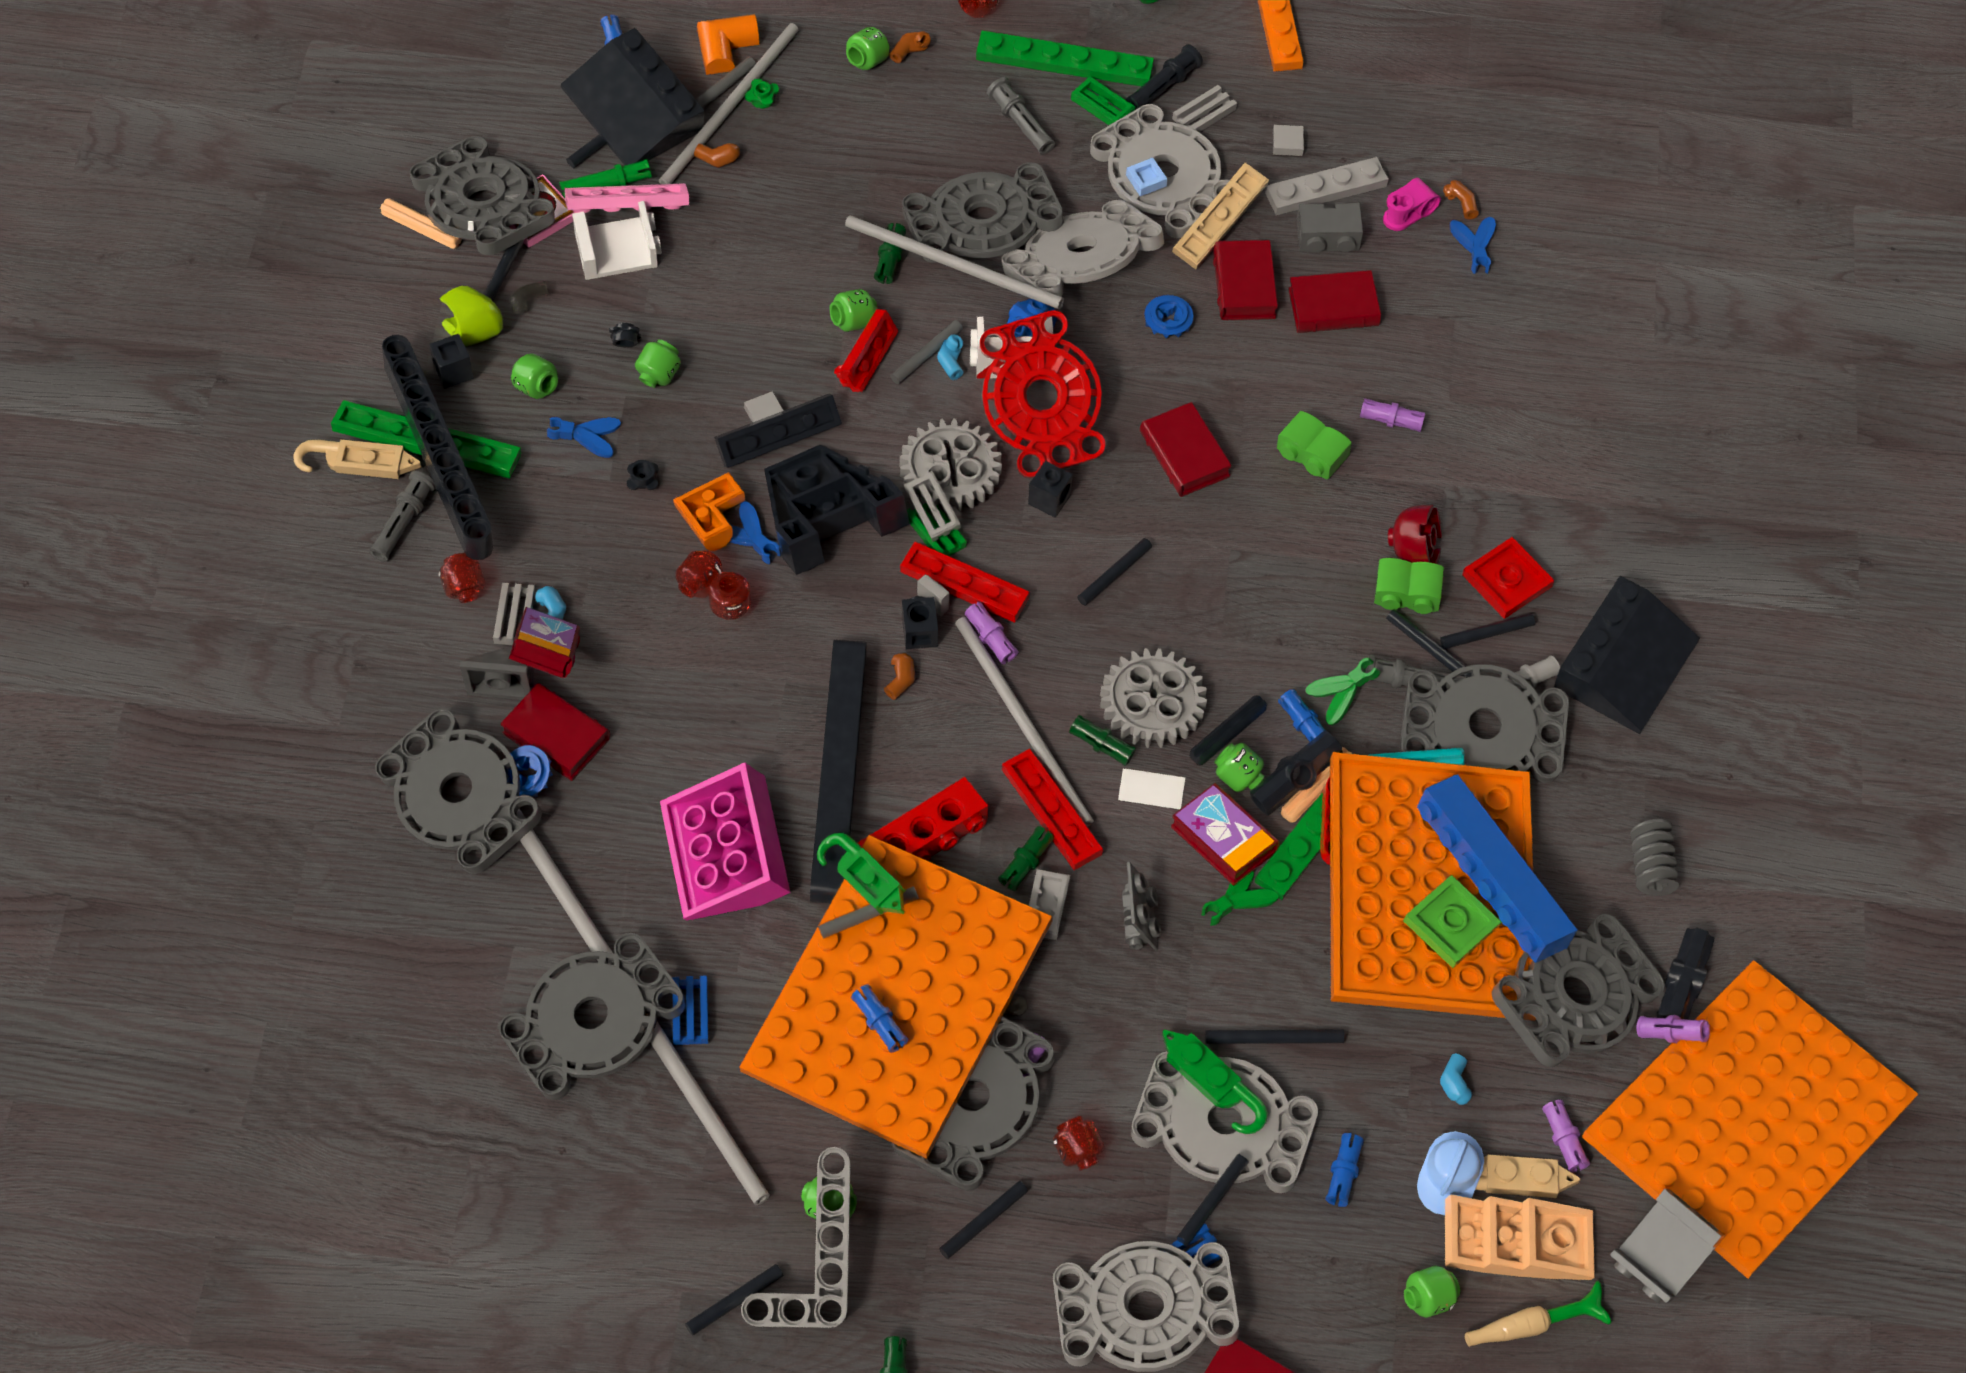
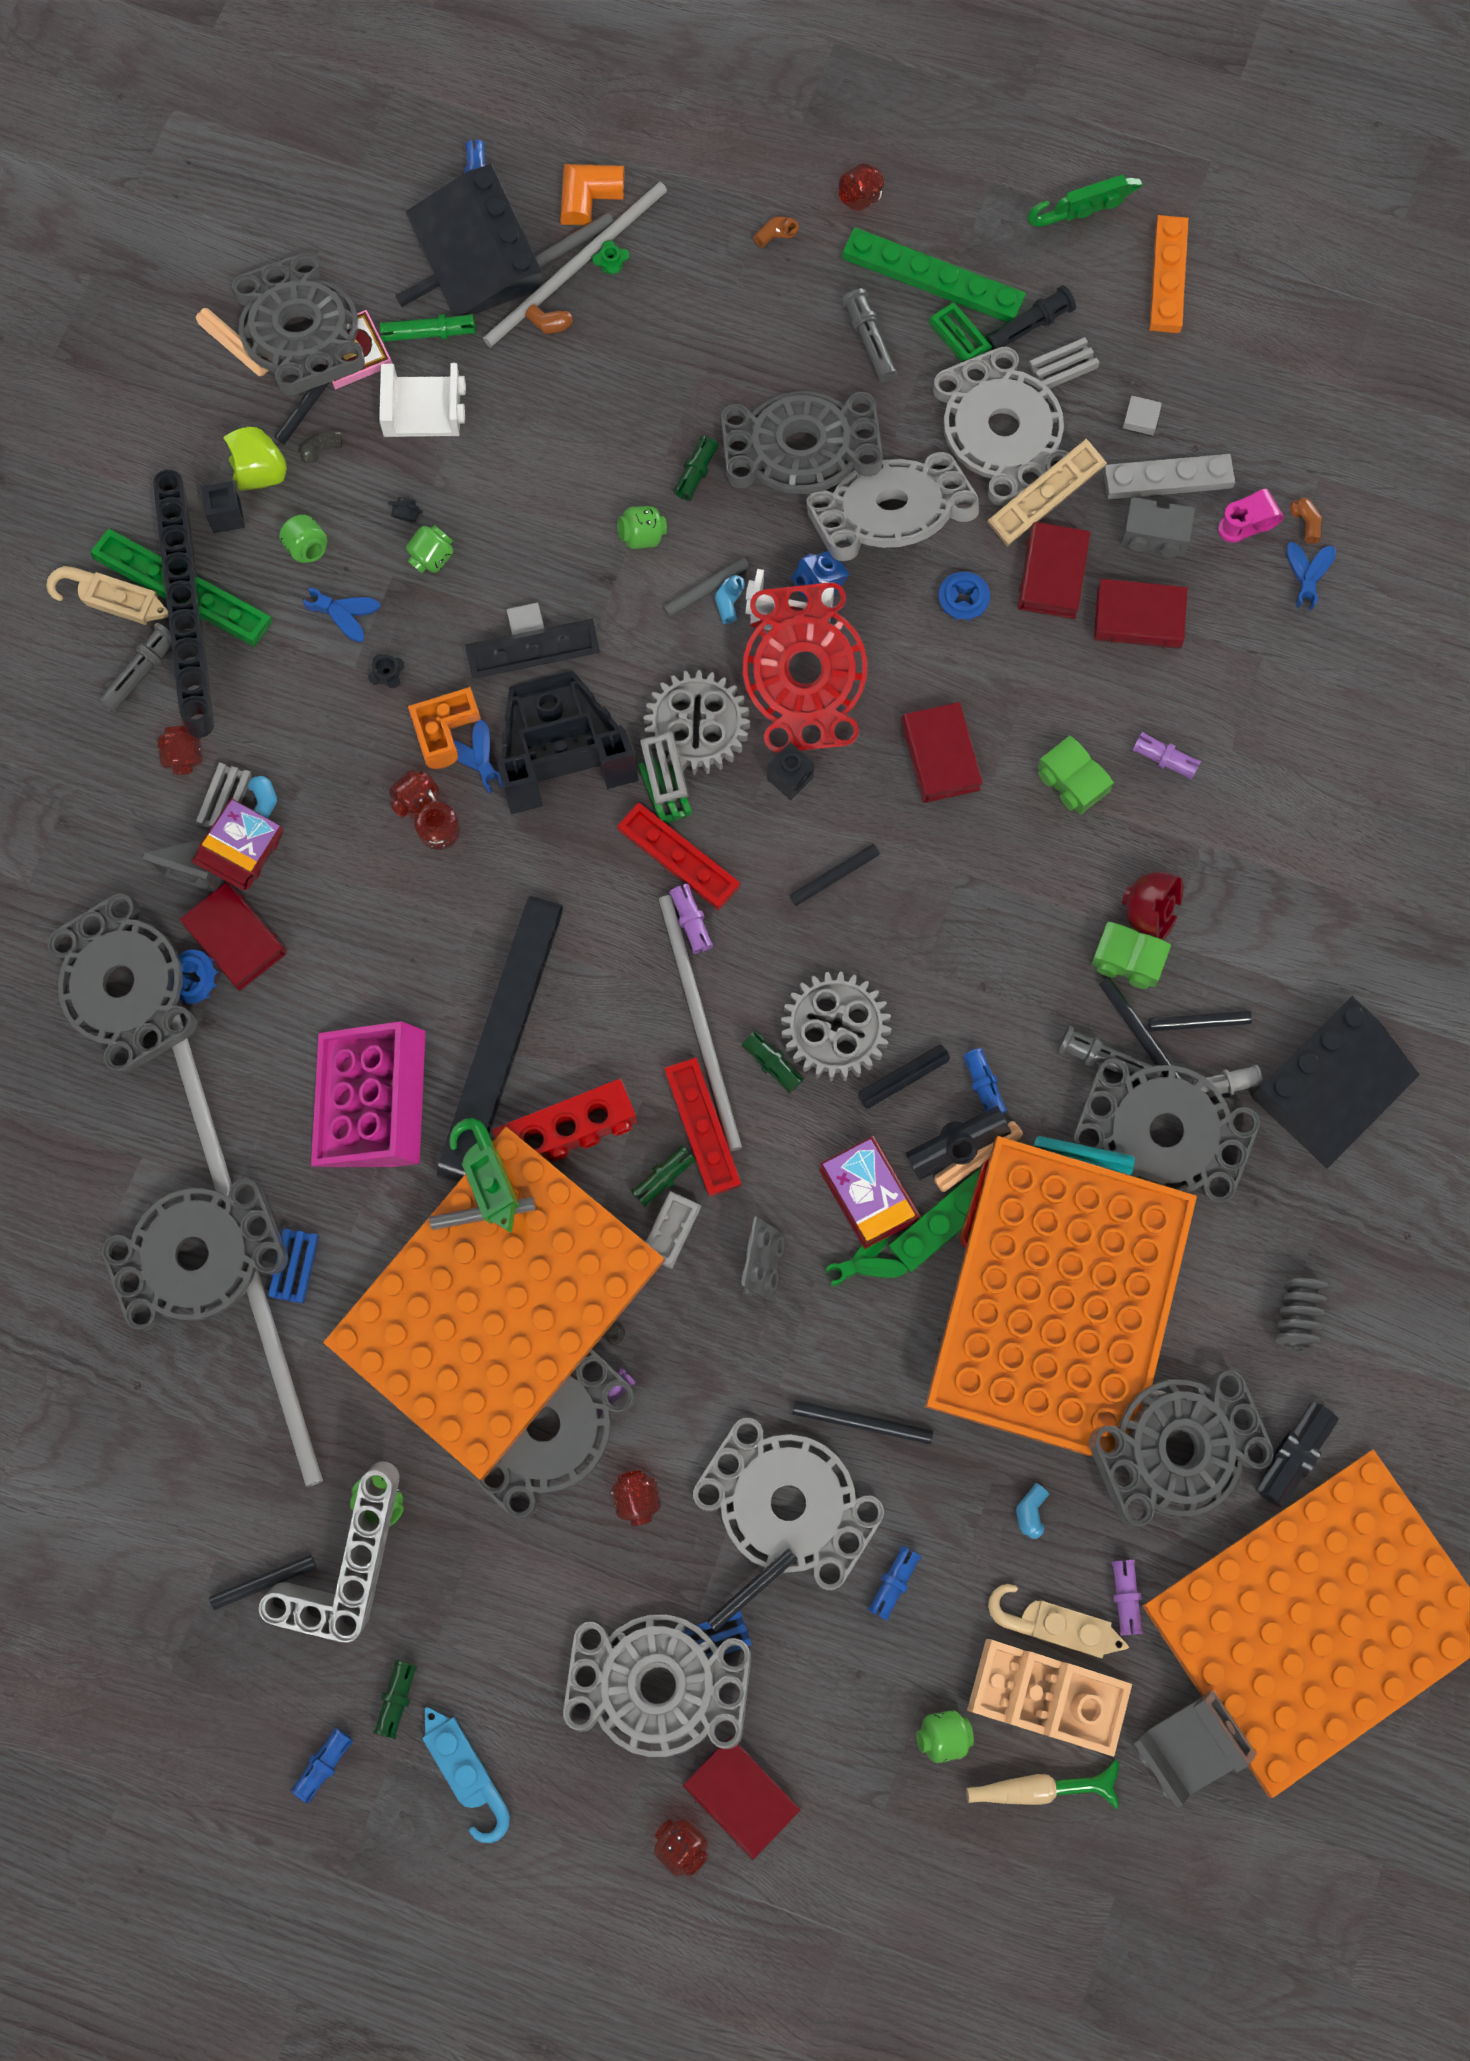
camera: 15 degrees right, 15 degrees up
(617, 197) = (441, 352): bright pink plate -> none
(867, 48) = (730, 227): bright green head -> none
(867, 352) = (645, 577): red hinge -> none
(879, 1018) = (465, 1330): blue pin -> none
(905, 675) = (593, 946): dark orange arm -> none
(923, 633) = (621, 906): black brick -> none
(930, 588) = (642, 865): light grey tile -> none
(954, 262) = (755, 496): light grey piece -> none
(983, 1220) = (524, 1553): black bar -> none
(1146, 177) = (980, 434): light blue plate -> none
(1151, 788) = (810, 1123): white sticker -> none
(1213, 1077) = (787, 1460): green plate -> none
(1239, 767) = (903, 1123): bright green head -> none
(1344, 688) = (1033, 1056): piece -> none
(1450, 1168) = (999, 1610): light blue piece -> none
(1452, 921) = (1069, 1351): bright green plate -> none
(1496, 868) = (1129, 1306): blue brick -> none
(1508, 577) = (1237, 966): red plate -> none
(1673, 1029) = (1284, 1522): medium lavender pin -> none

